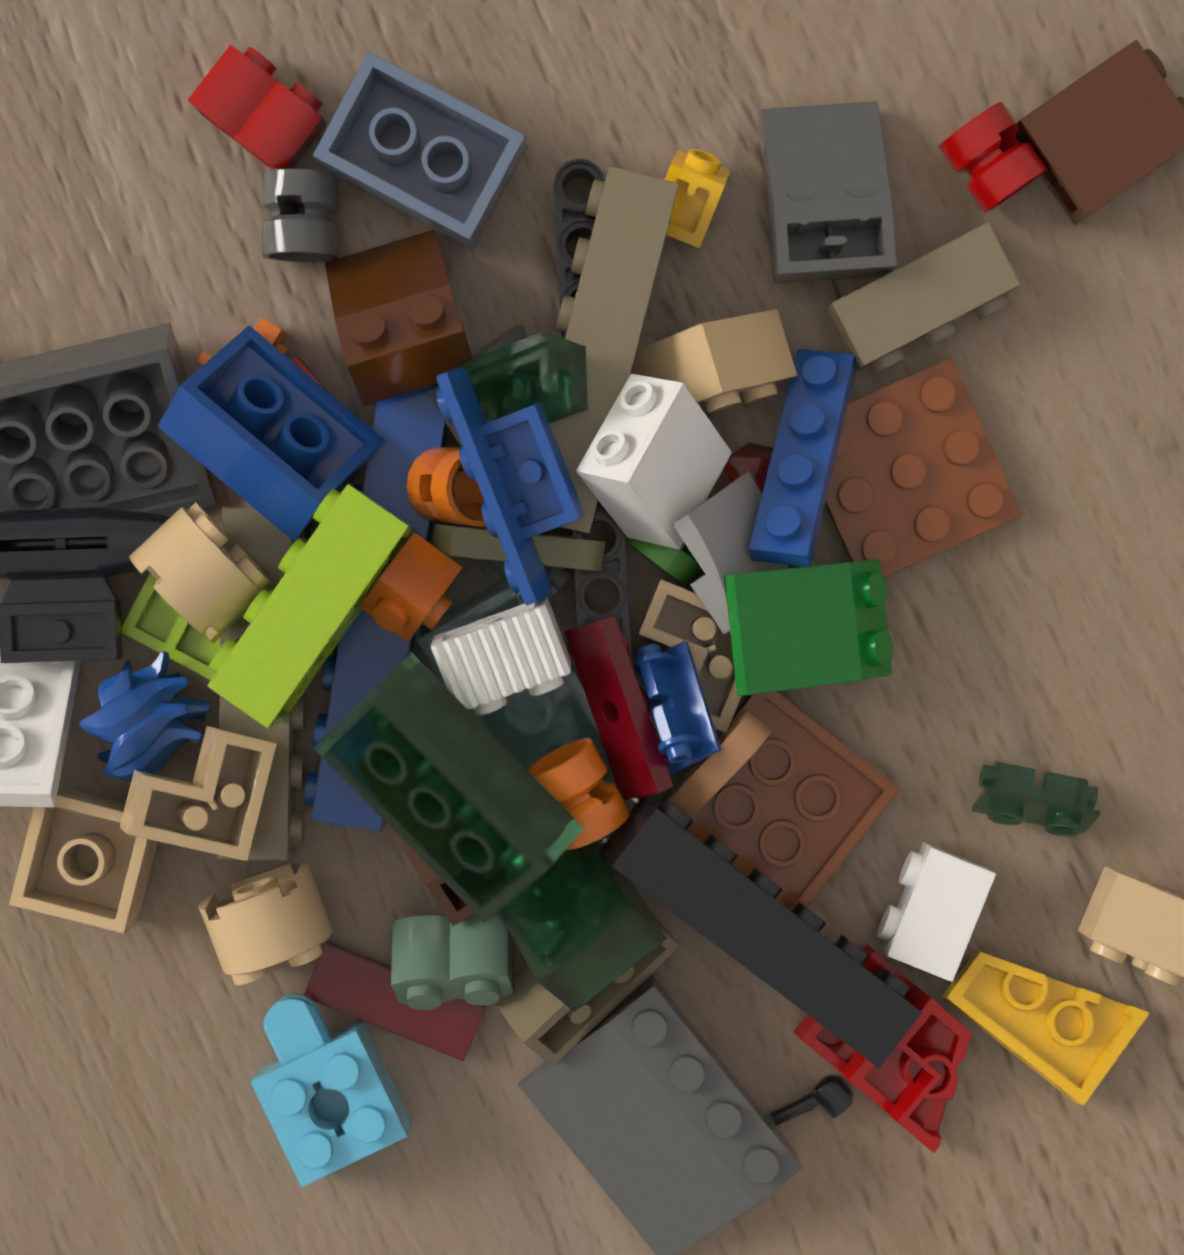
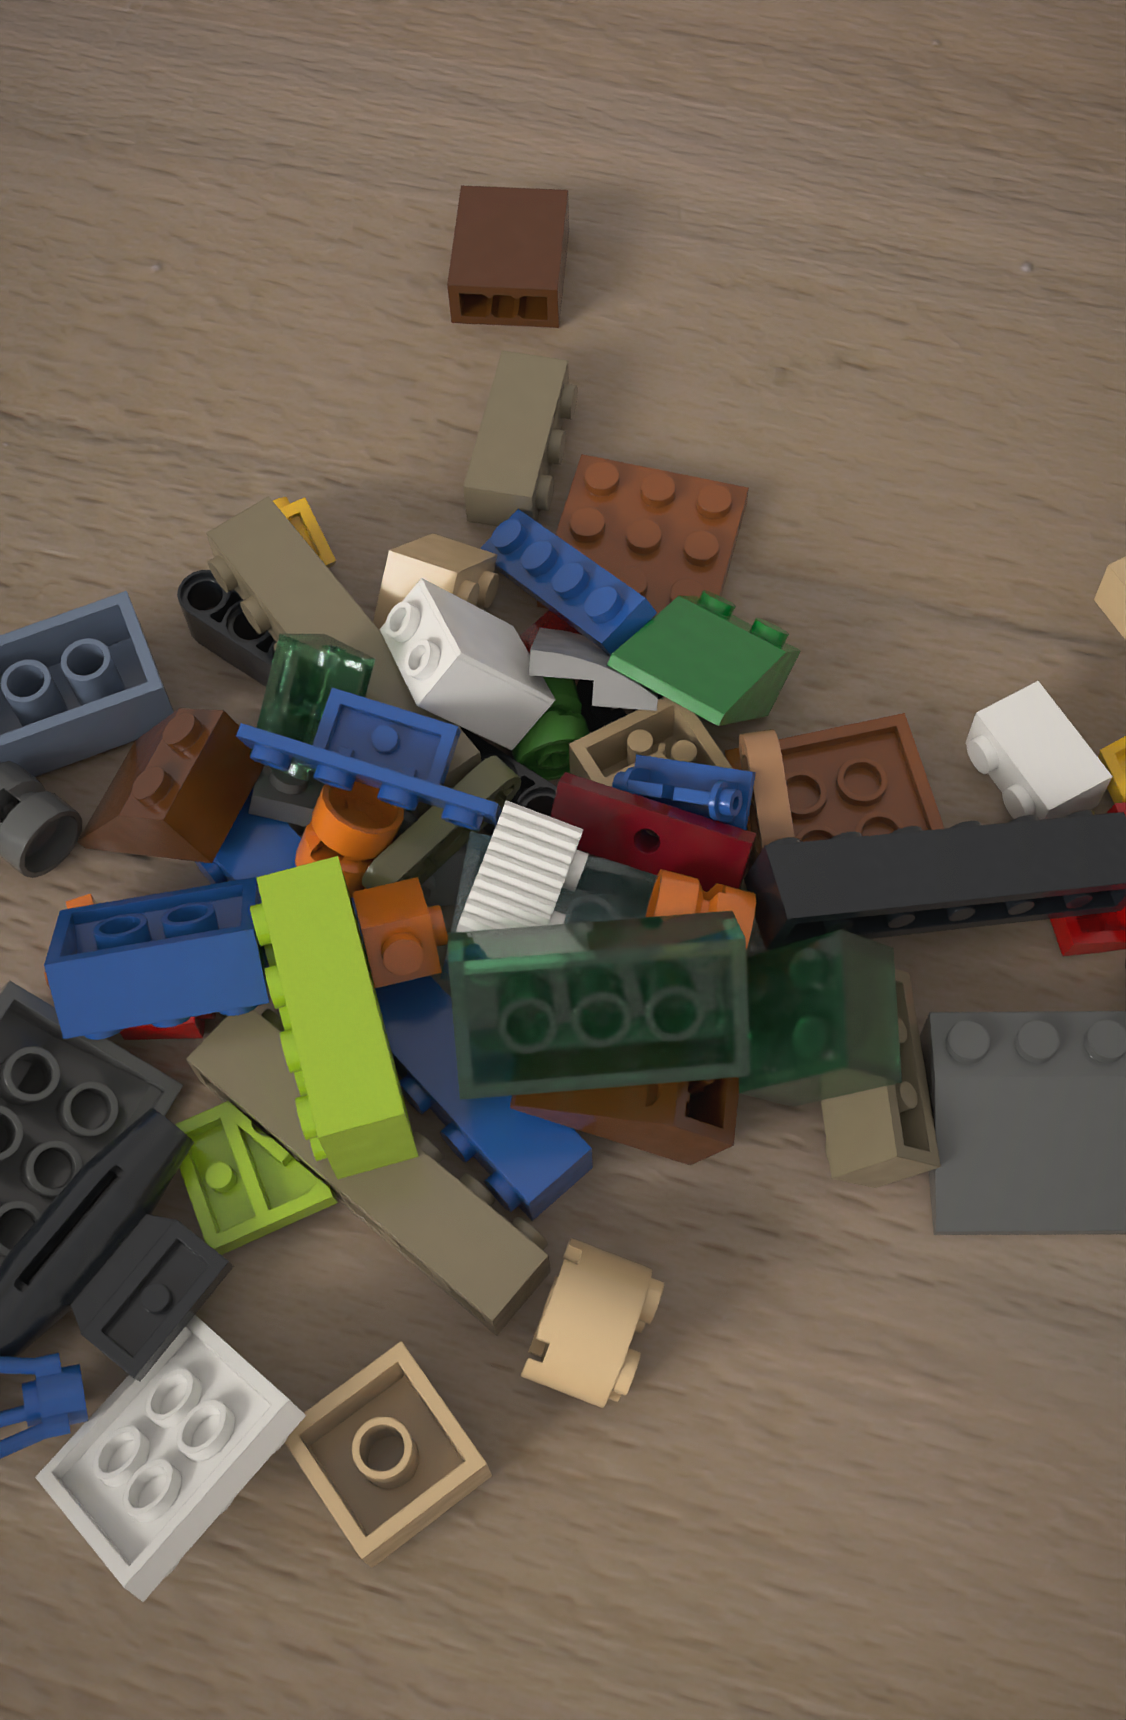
camera: 50 degrees left, 25 degrees down
(143, 718) = (306, 1285): blue hair -> none
(198, 573) = (217, 1092): tan brick -> none
(213, 811) = (434, 1259): tan brick -> none
(326, 1091) = (809, 1409): medium azure brick -> none
(364, 991) = (764, 1282): dark red tile -> none
(451, 962) = (765, 1181): sand green brick -> none
(828, 193) = (386, 449): dark grey slope -> none
(992, 157) = (458, 327): red wheel -> none
(1062, 806) = (1009, 623): clear green hinge -> none

